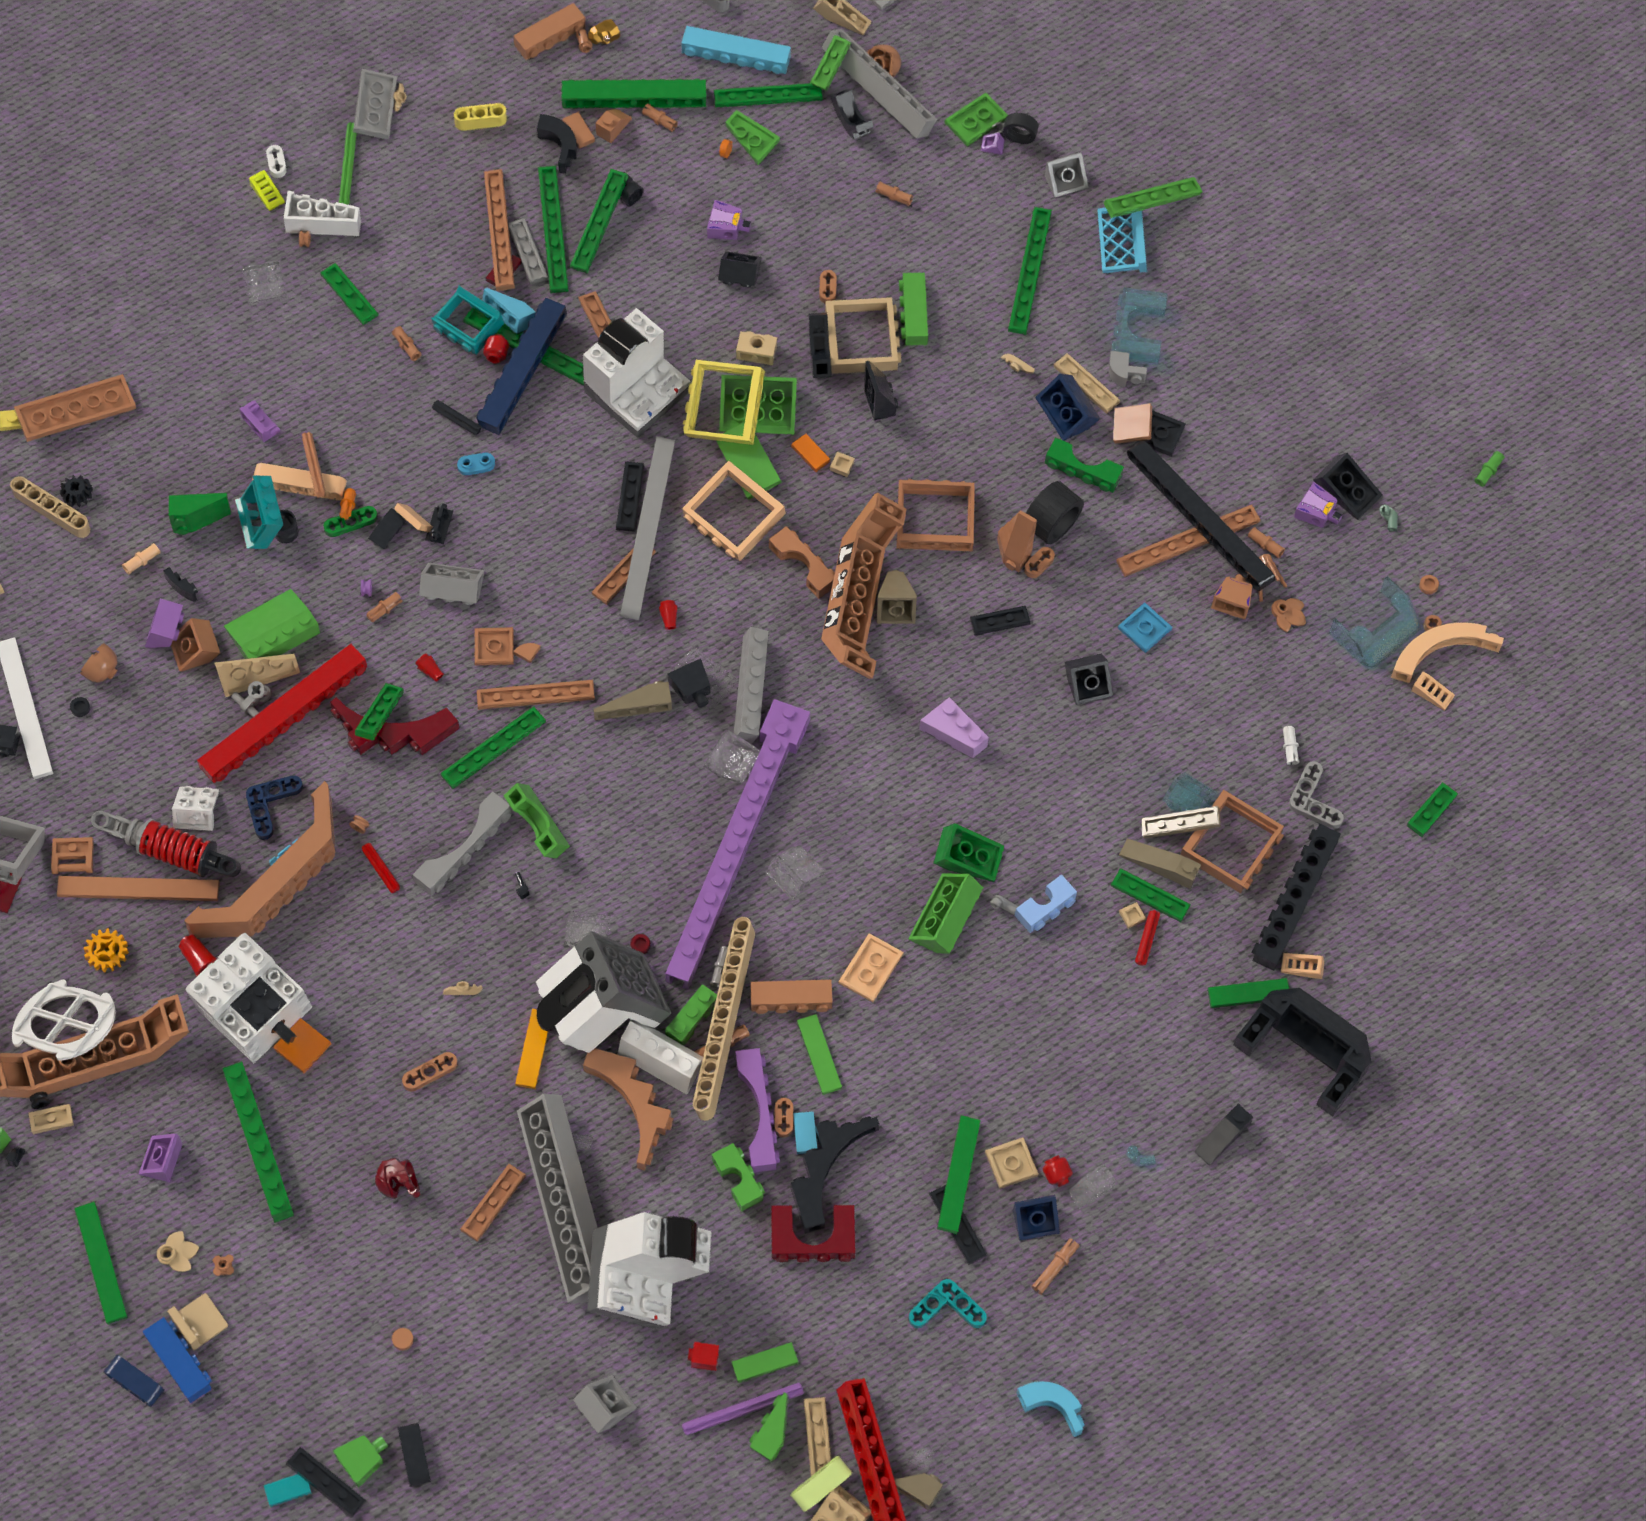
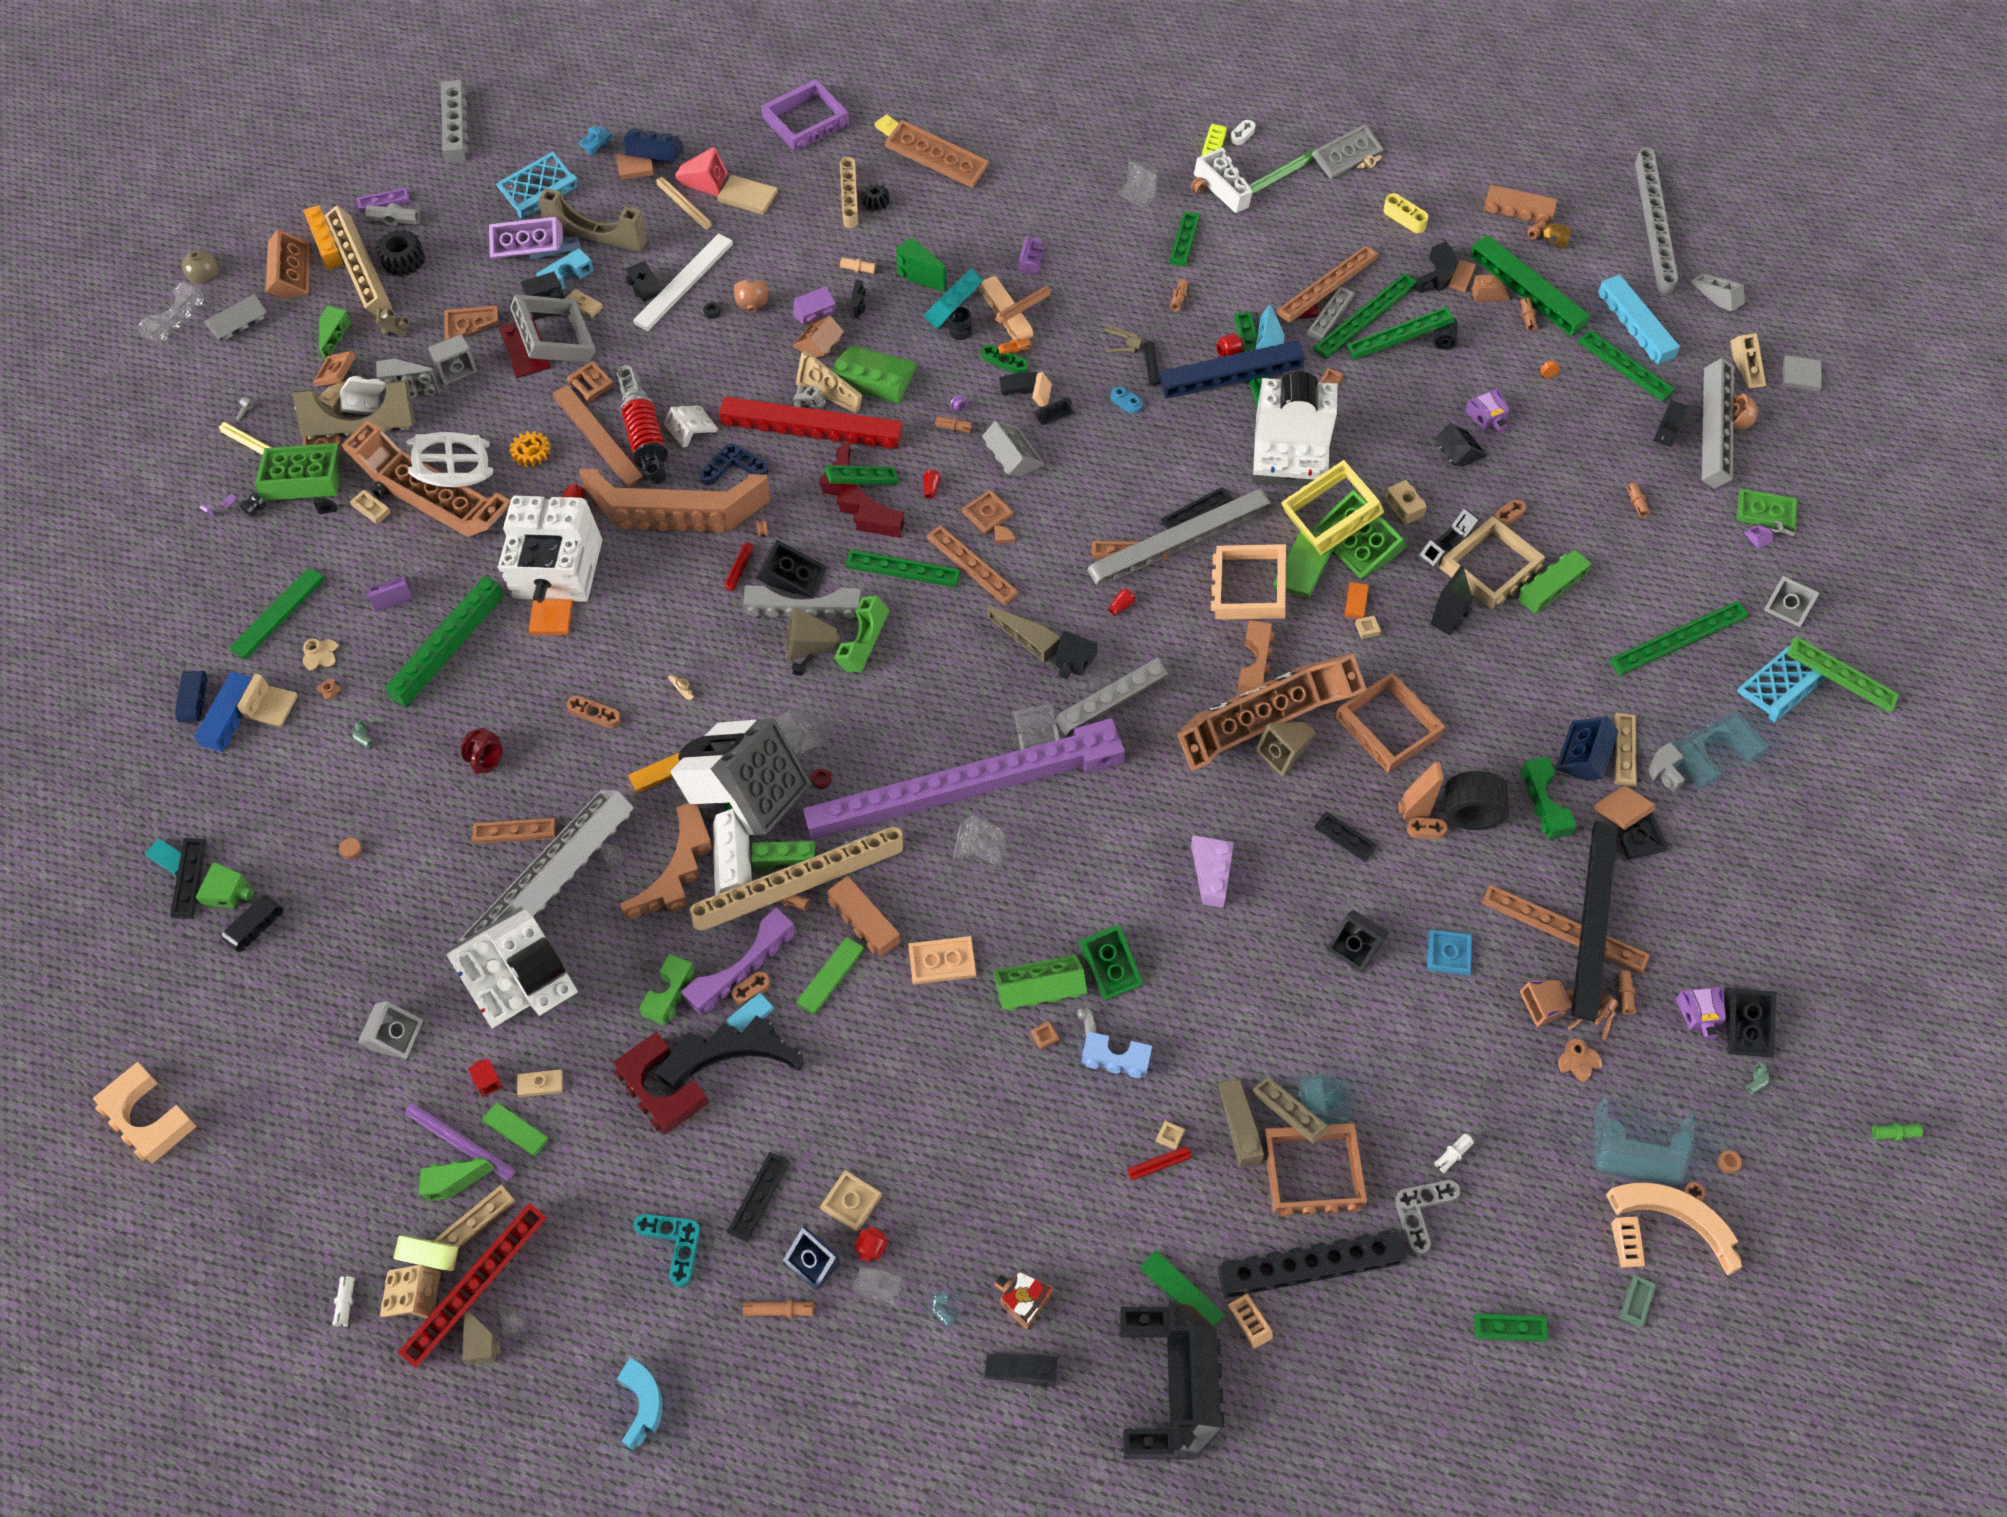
camera: 55 degrees right, 5 degrees down
(293, 1267) = (360, 734): none -> sand green arm
(422, 413) = (1133, 339): none -> dark tan plant
(422, 831) = (791, 570): none -> black slope
(456, 335) = (1244, 329): teal window -> none
(500, 862) = (809, 636): none -> dark tan slope
(740, 1320) = (540, 1083): none -> tan plate
(752, 136) = (1580, 378): bright green wing -> none
(830, 62) = (1696, 378): bright green tile -> none
(958, 1174) = (803, 1163): green tile -> none
(989, 941) = (1044, 1035): none -> nougat tile
(1017, 135) = (1800, 537): black tyre -> none
(1017, 364) = (1586, 686): tan piece -> none
(1150, 895) = (1203, 1137): green tile -> none
(1175, 1097) = (1023, 1297): none -> torso
(1473, 719) = (1637, 1301): none -> sand green tile

